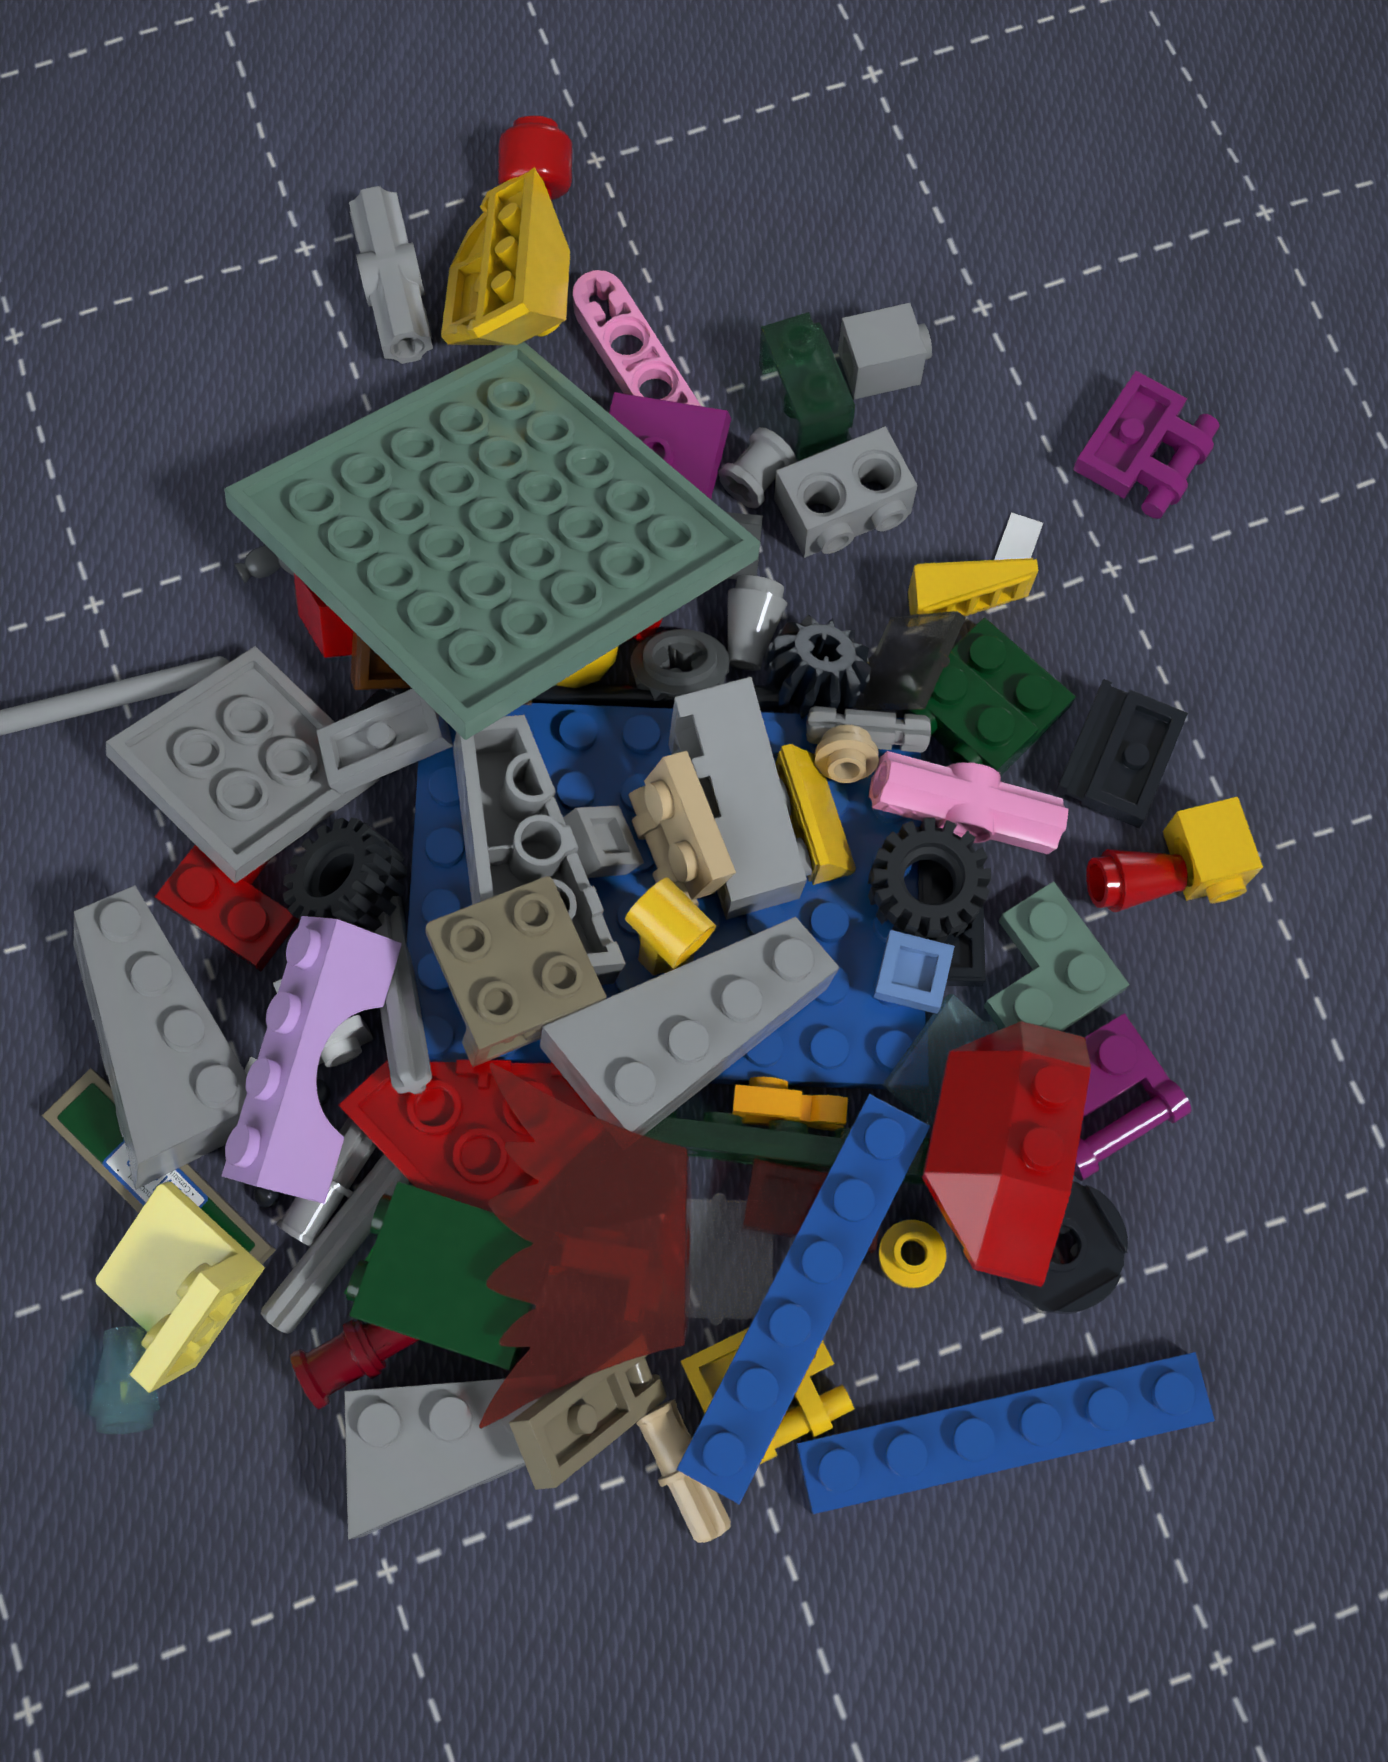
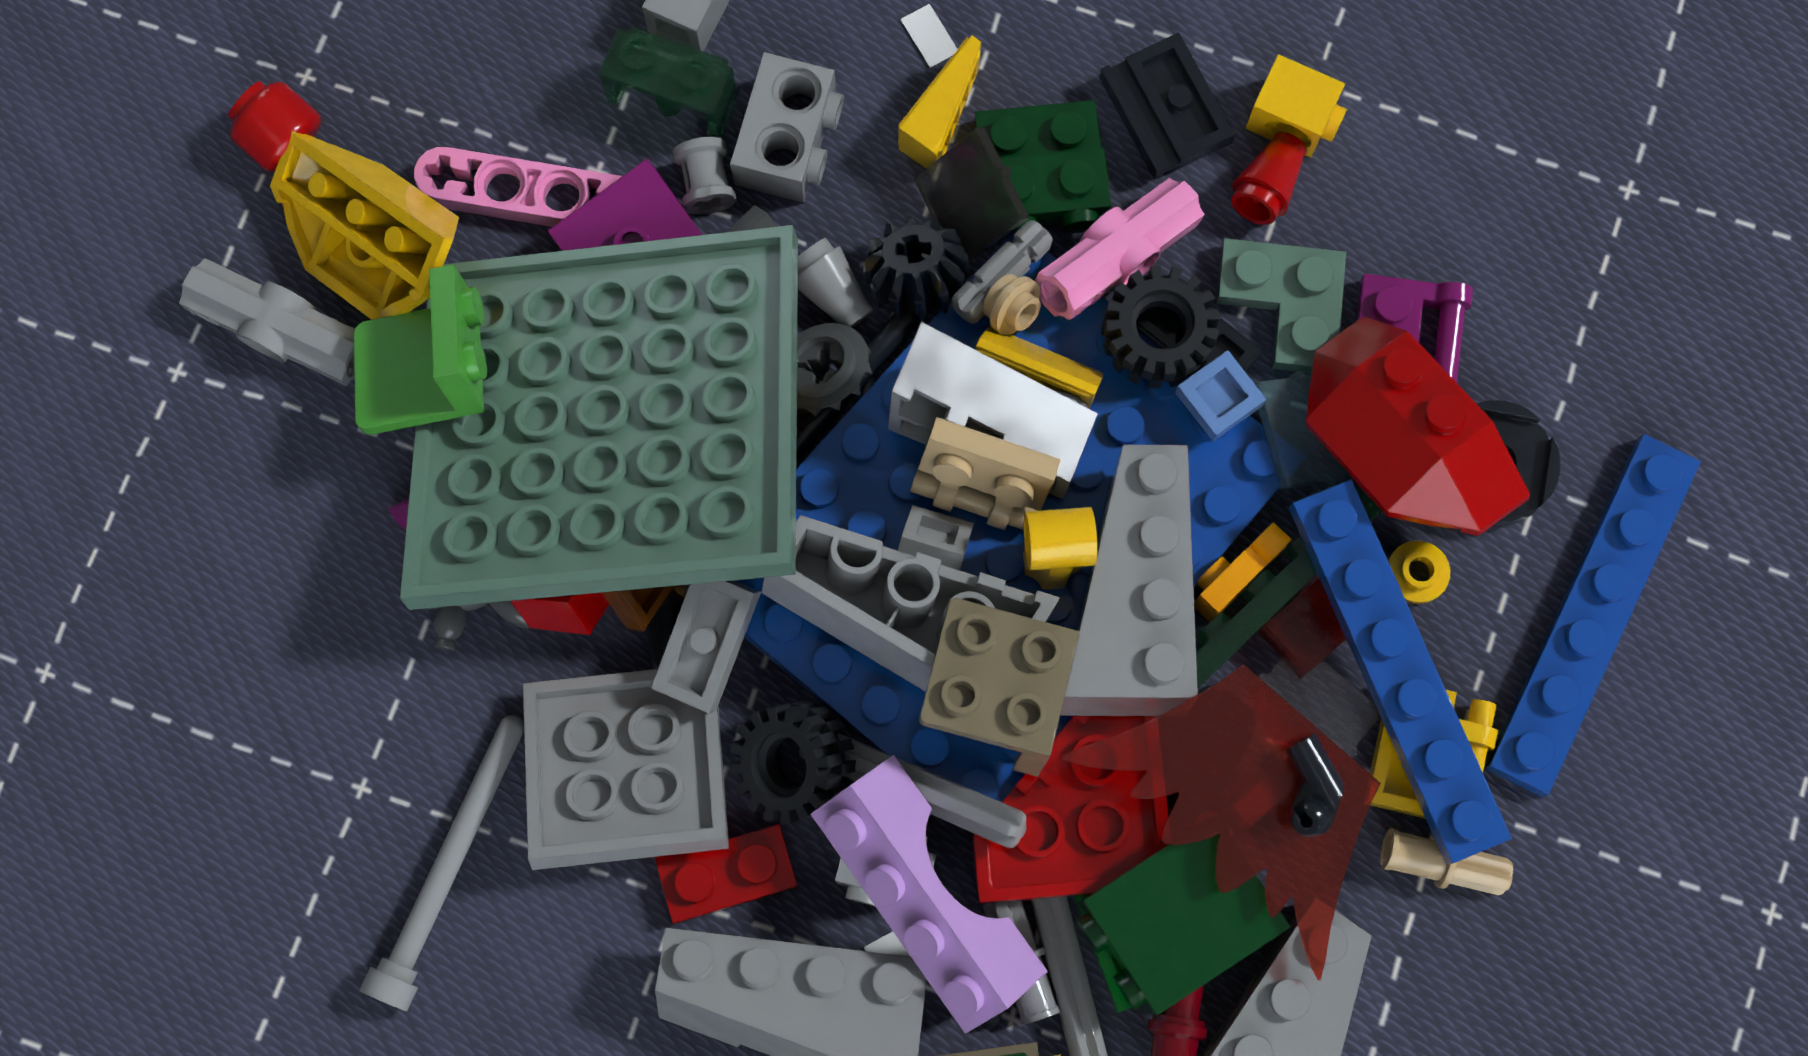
camera: 50 degrees left, 5 degrees up
(428, 375) = (423, 361): none -> bright green bracket
(583, 1419) = (1369, 907): dark tan plate -> none
(629, 1295) = (1319, 788): none -> black arm

